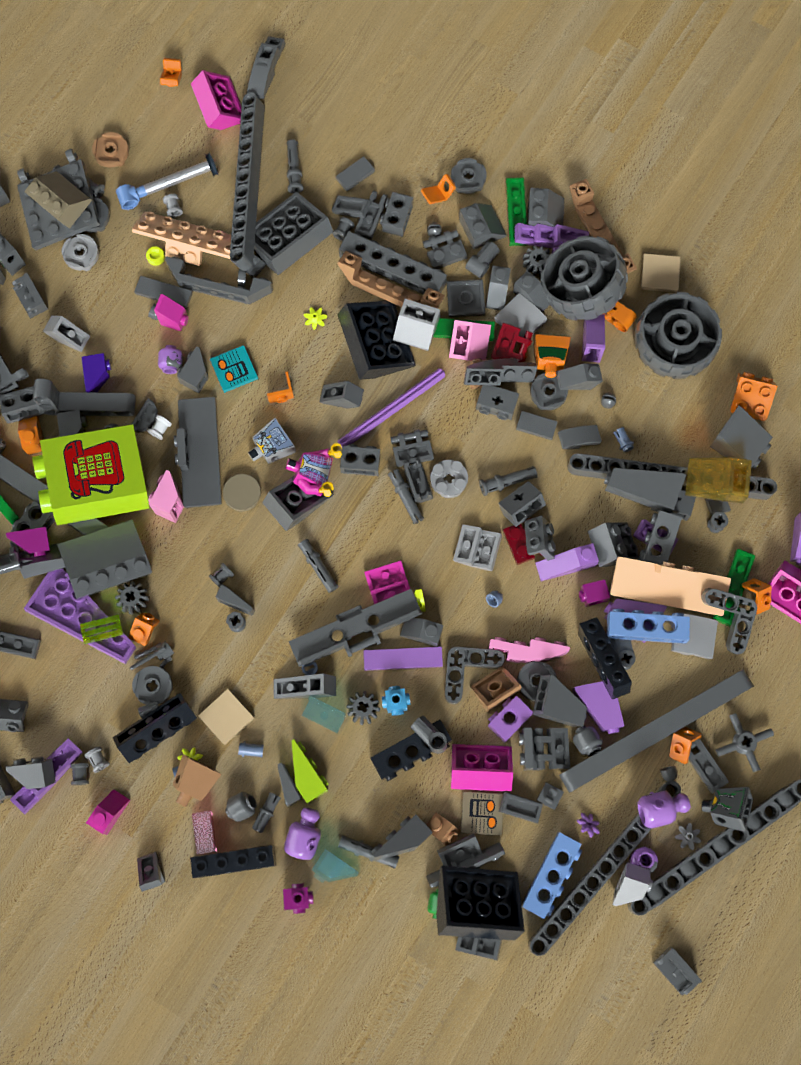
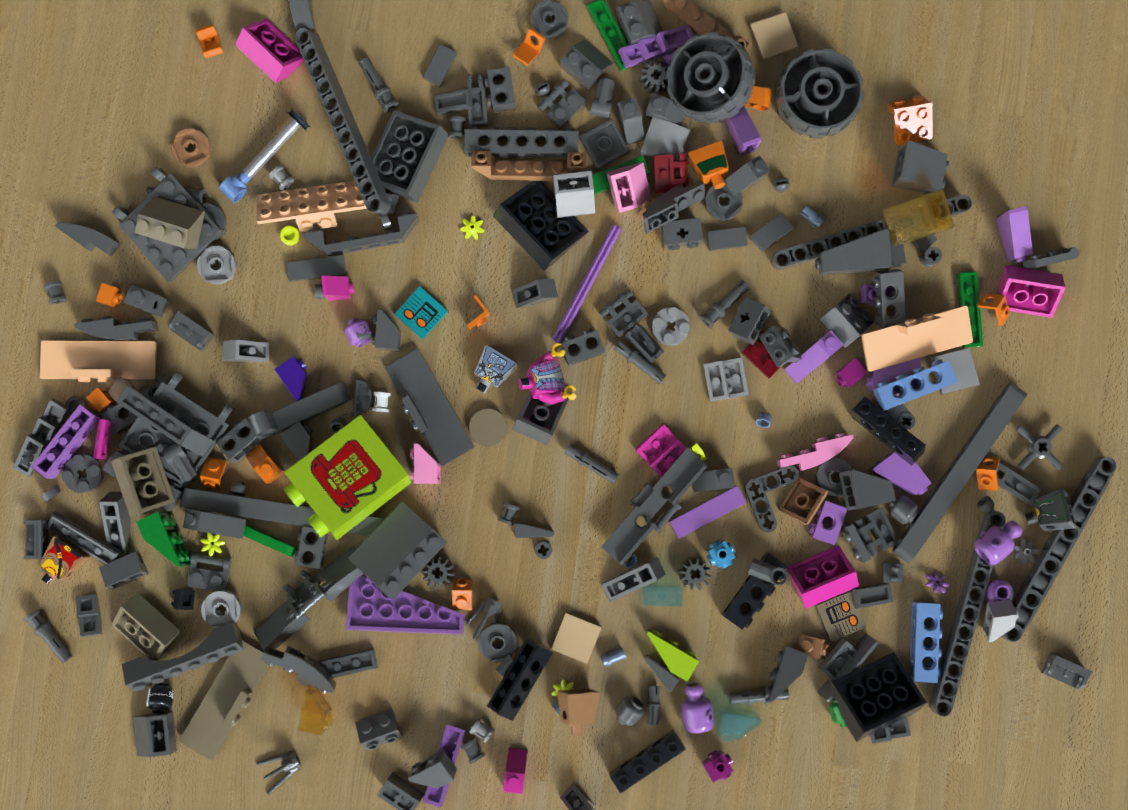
camera: 30 degrees left, 10 degrees up
(31, 540) = (322, 565): magenta slope -> none
(94, 638) = (426, 615): clear neon green tile -> none
(204, 832) = (607, 747): clear pink slope -> none
(740, 615) = (987, 335): dark grey beam -> none

